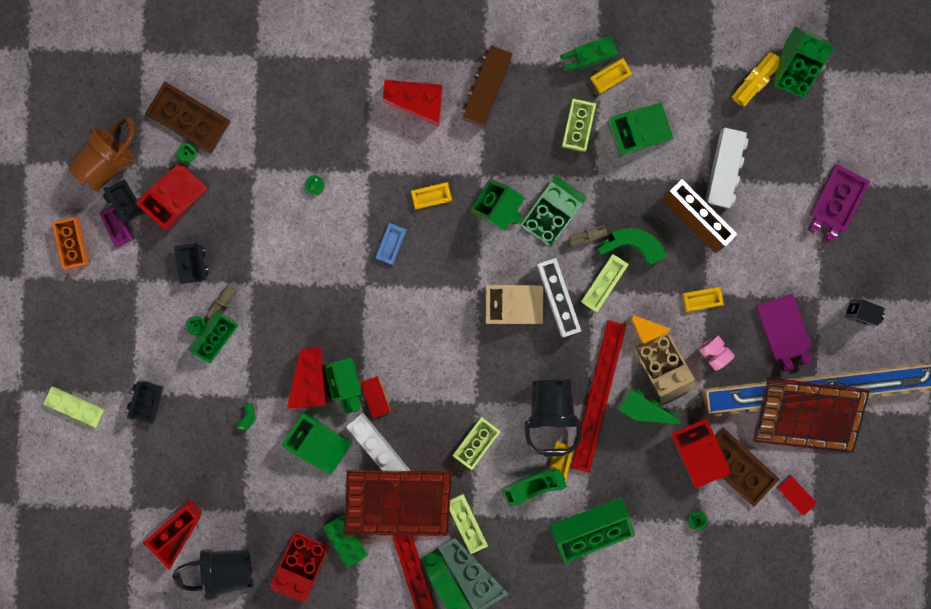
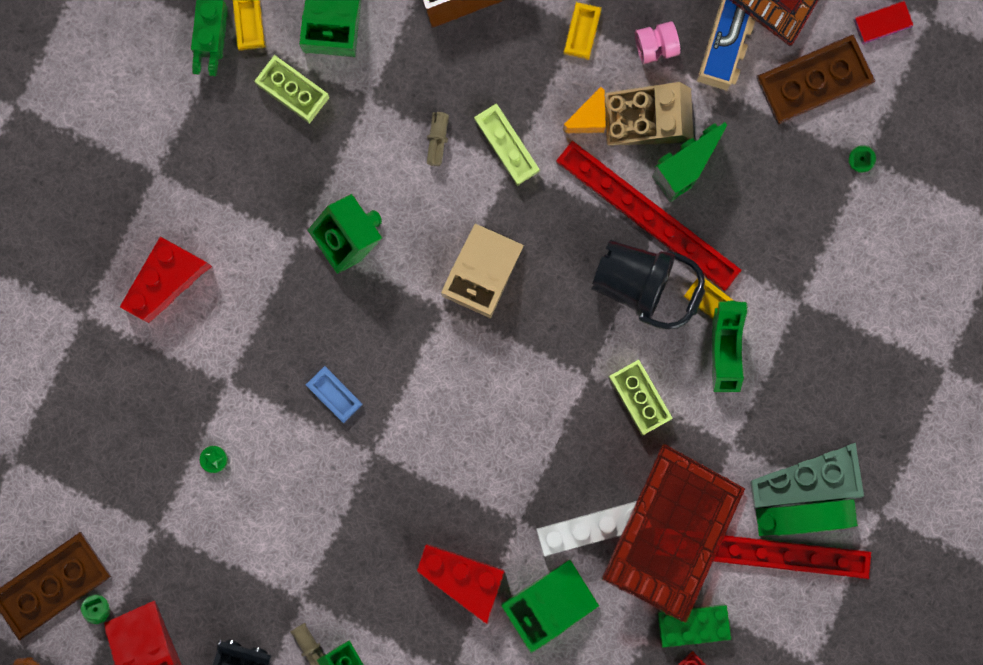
camera: 65 degrees left, 5 degrees down
(344, 384) = (488, 535): green hinge -> none
(375, 397) = (523, 502): red tile -> none
(431, 195) = (296, 315): yellow tile -> none
(467, 524) = (741, 456): yellowish green plate -> none
(487, 86) = (189, 182): reddish brown brick -> none
(553, 211) = (386, 168): green slope -> none
(558, 297) = (498, 209): white brick -> none
(592, 530) = (818, 297): green slope -> none
(647, 244) = (477, 71): green arch -> none
(701, 453) = (777, 116): red slope -> none

